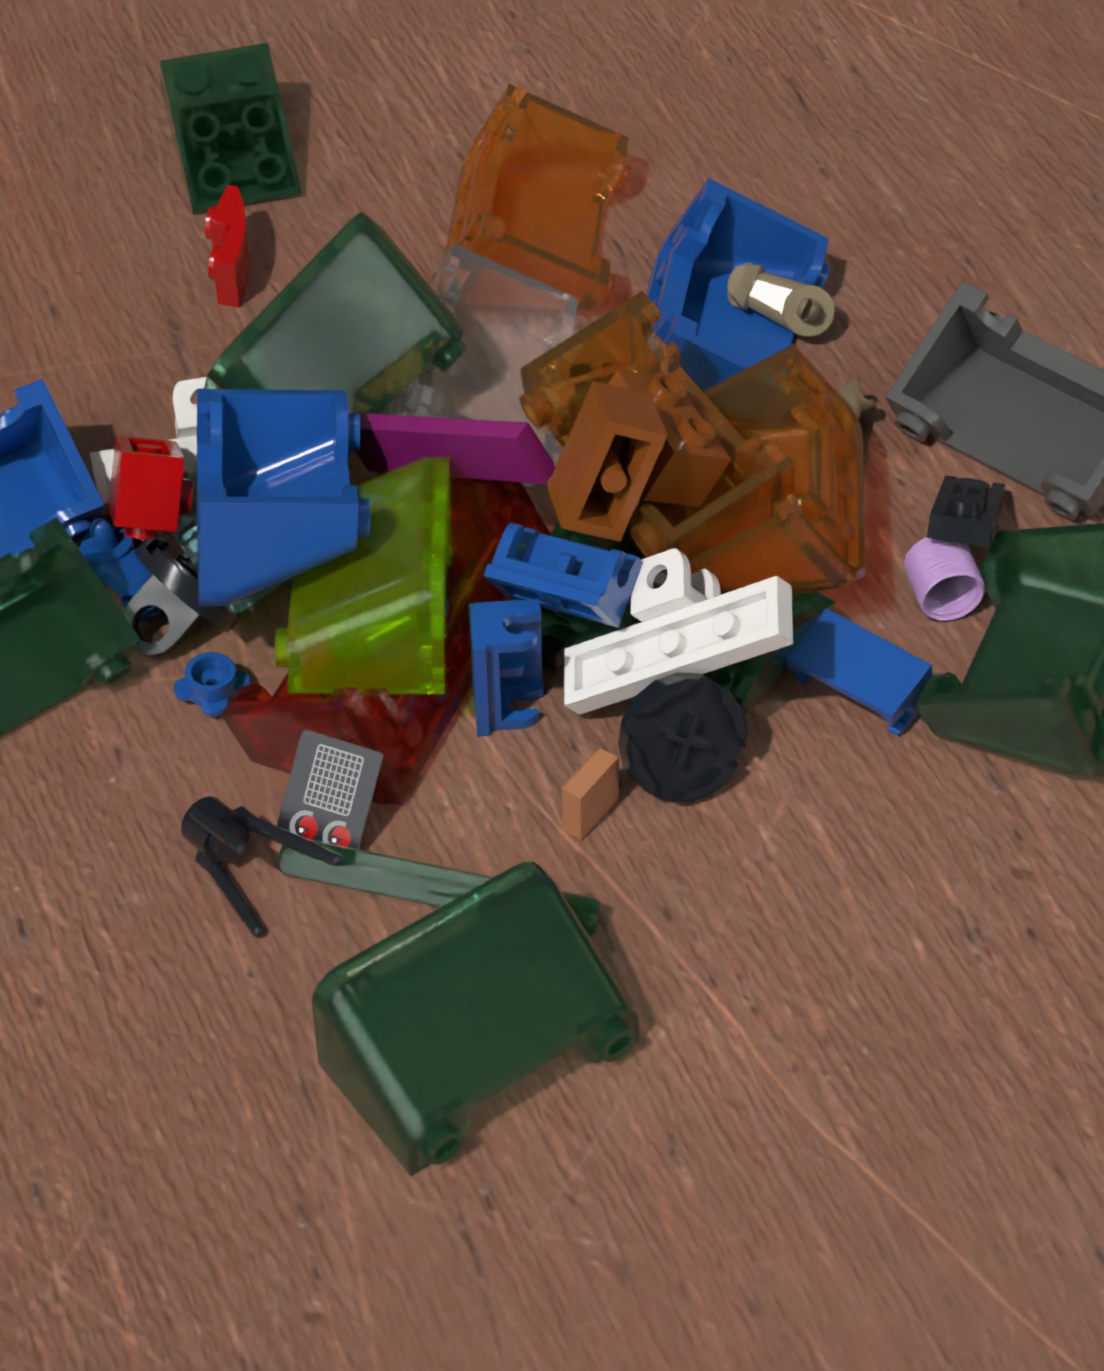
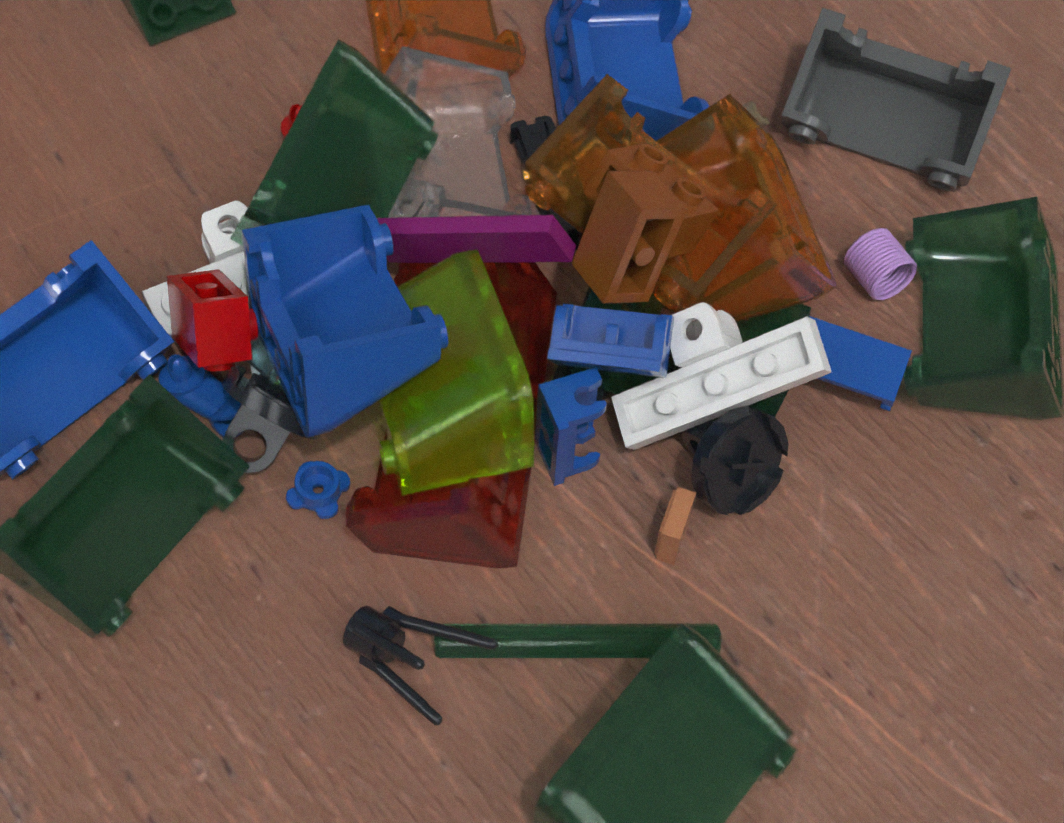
camera: 20 degrees left, 10 degrees up
(230, 253) = (196, 74): red slope -> none
(329, 790) = (461, 577): sticker -> none
(792, 304) = (670, 44): dark tan piece -> none
(966, 511) = (881, 205): black hinge -> none

